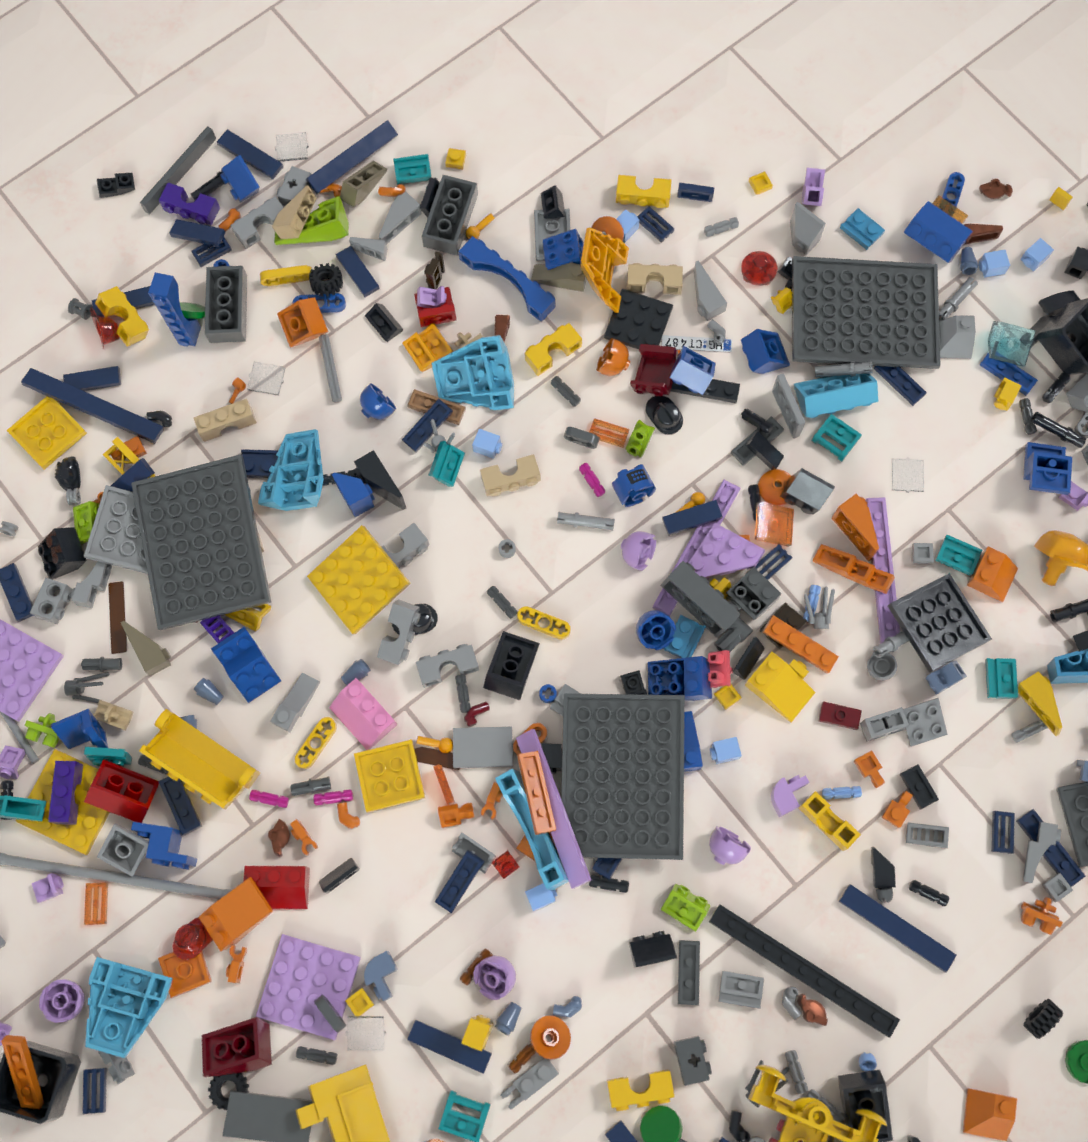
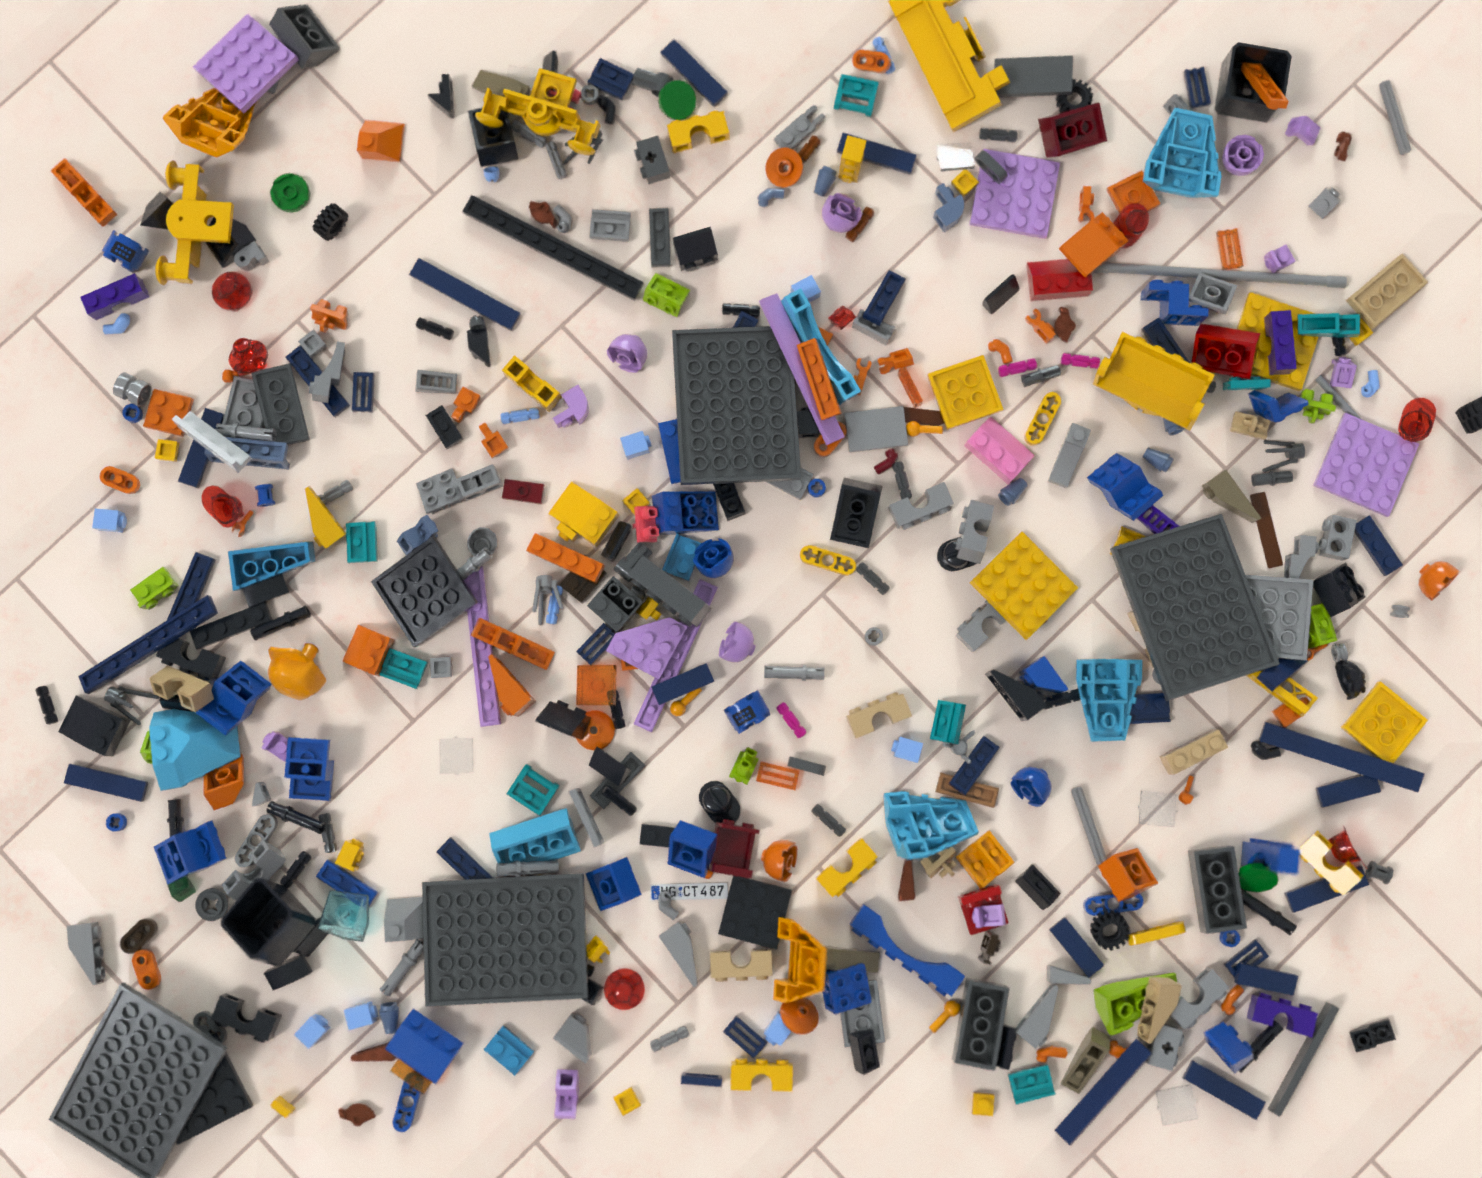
camera: 175 degrees right, 10 degrees up
(185, 284) = (1274, 917): none -> black pin

